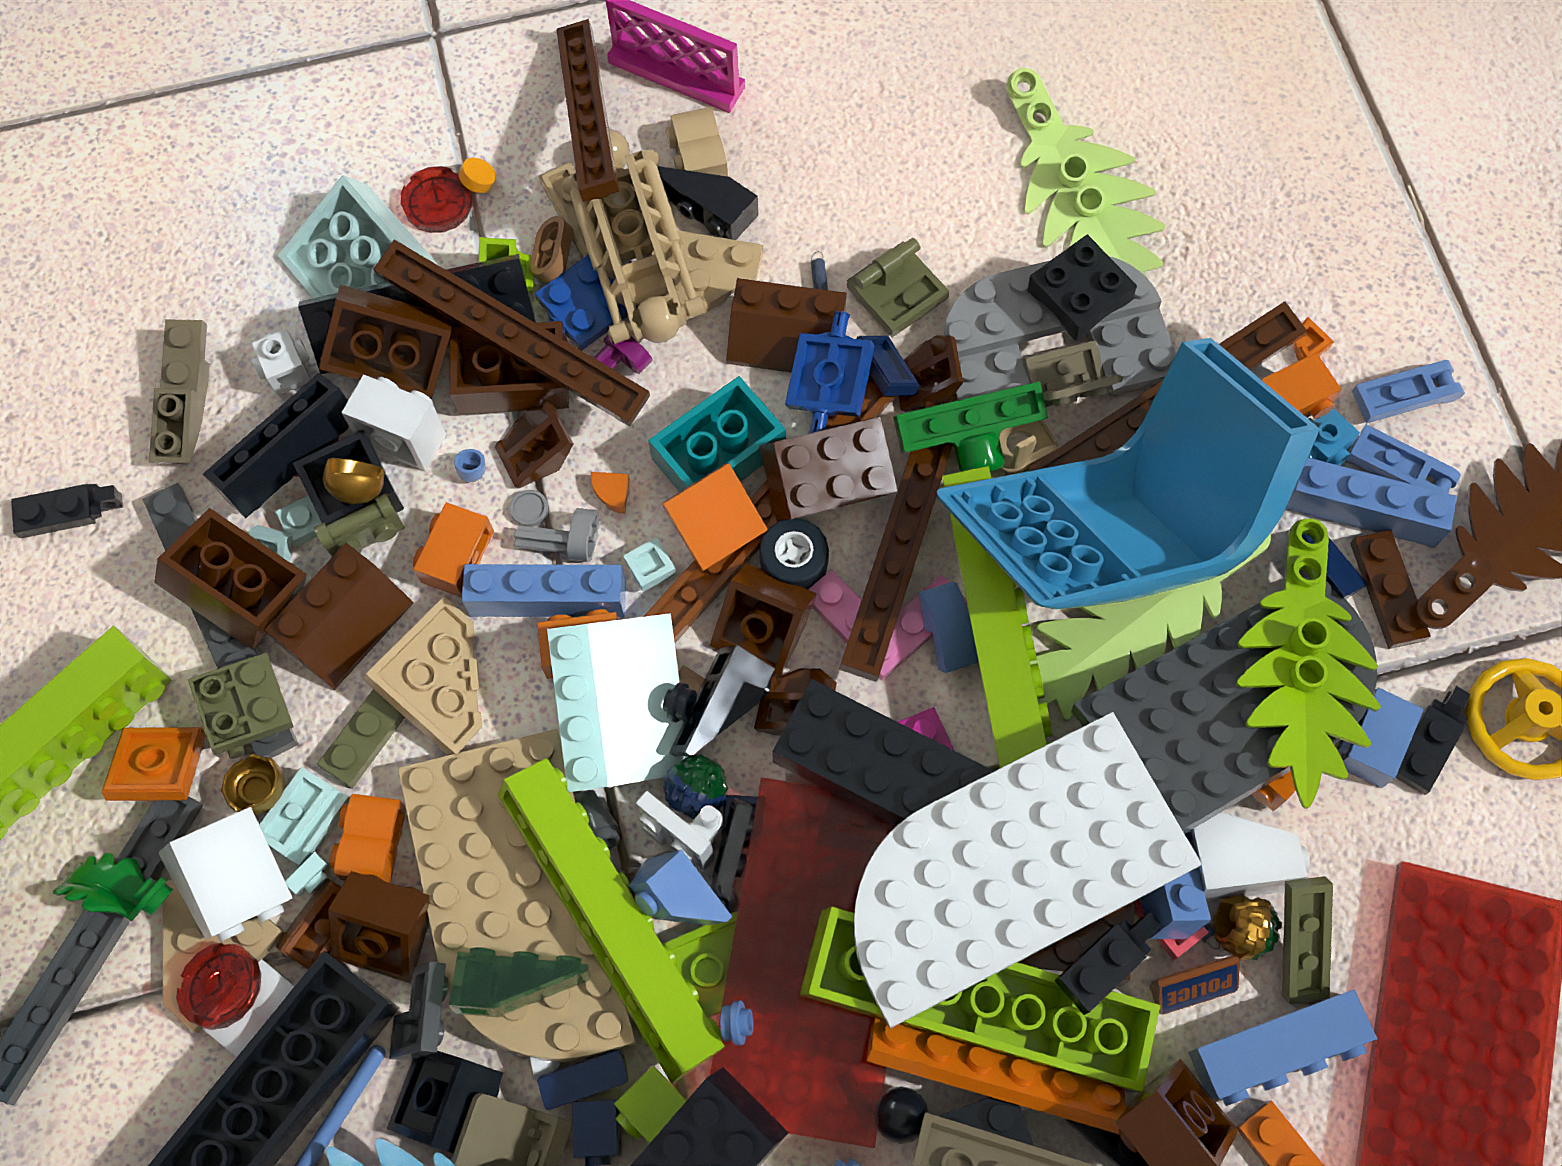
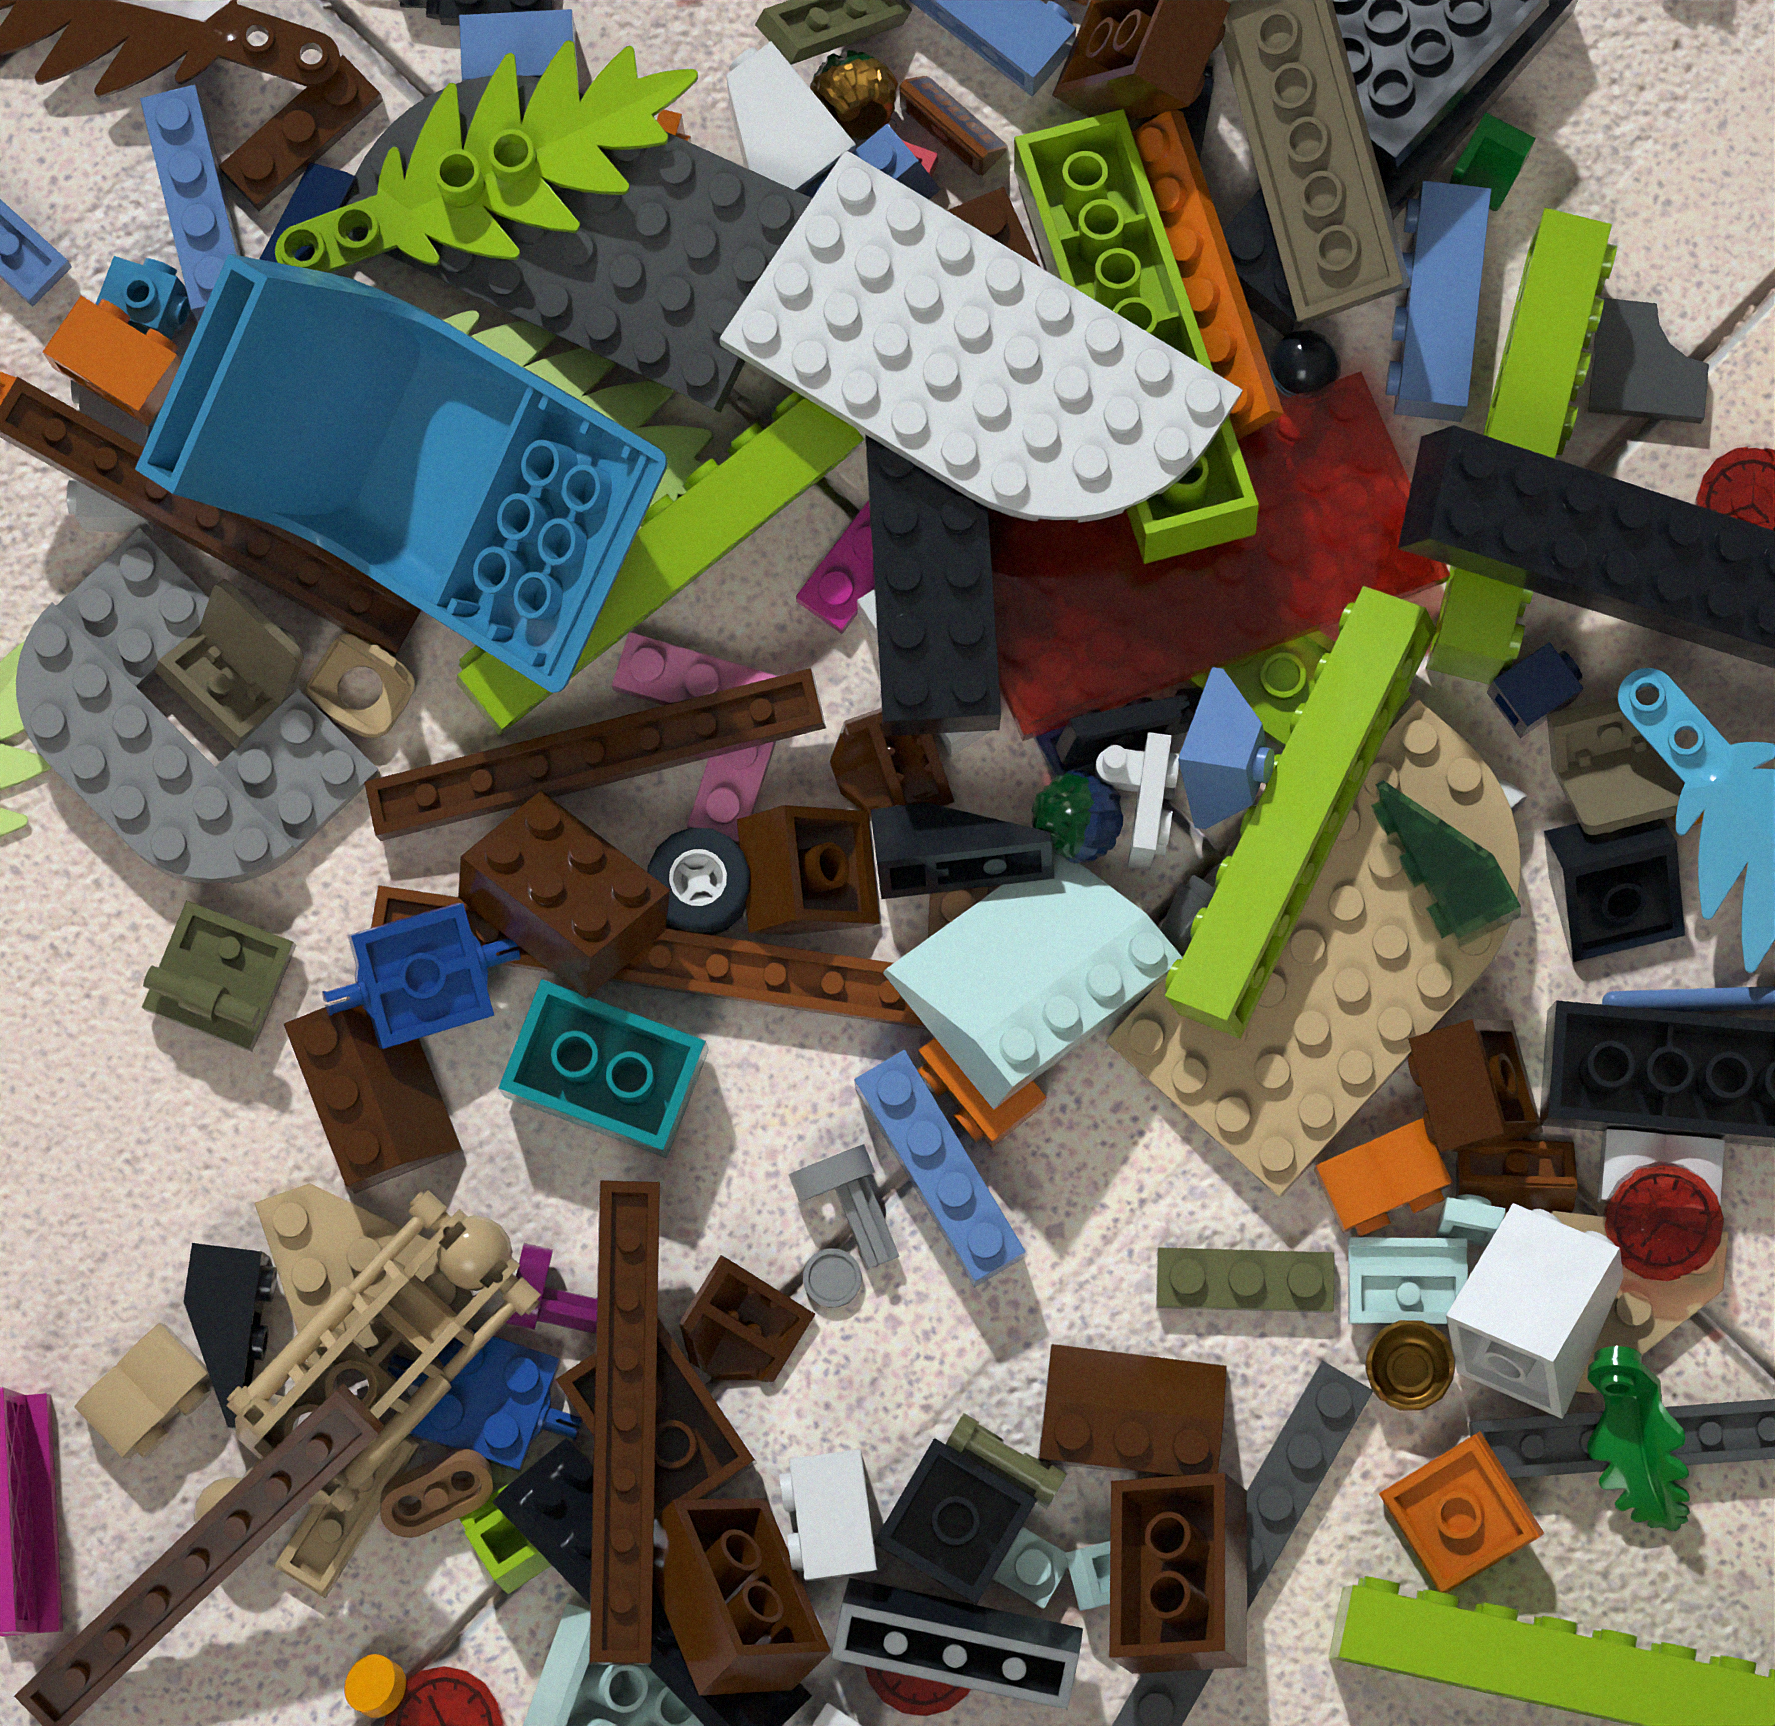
camera: 120 degrees left, 10 degrees up
(240, 704) = (1323, 1449): olive plate -> none
(352, 480) = (958, 1485): pearl gold hair -> none
(420, 1028) = (1553, 950): dark grey plate -> none
(434, 677) = (1136, 1234): tan plate -> none
(454, 540) = (955, 1330): orange brick -> none
(473, 464) = (813, 1393): medium blue hinge -> none
(583, 1079) = (1495, 734): dark blue slope -> none
(611, 489) = (743, 1182): orange tile -> none
(649, 564) = (819, 1061): light aqua plate -> none
(680, 702) = (991, 890): black plate -> none
(714, 516) = (717, 999): orange tile -> none
(736, 1022) = (1330, 586): medium blue plate -> none
(819, 273) = (258, 1098): sand blue piece -> none
(890, 369) = (361, 903): dark blue tile -> none
(937, 371) = (328, 859): reddish brown slope -> none
(951, 626) = (678, 631): medium blue slope -> none
(972, 424) = (386, 748): green plate -> none
(1082, 286) = (103, 706): black brick -> none
(1107, 962) = (1009, 211): black hinge -> none
(1399, 461) = (114, 191): medium blue plate -> none

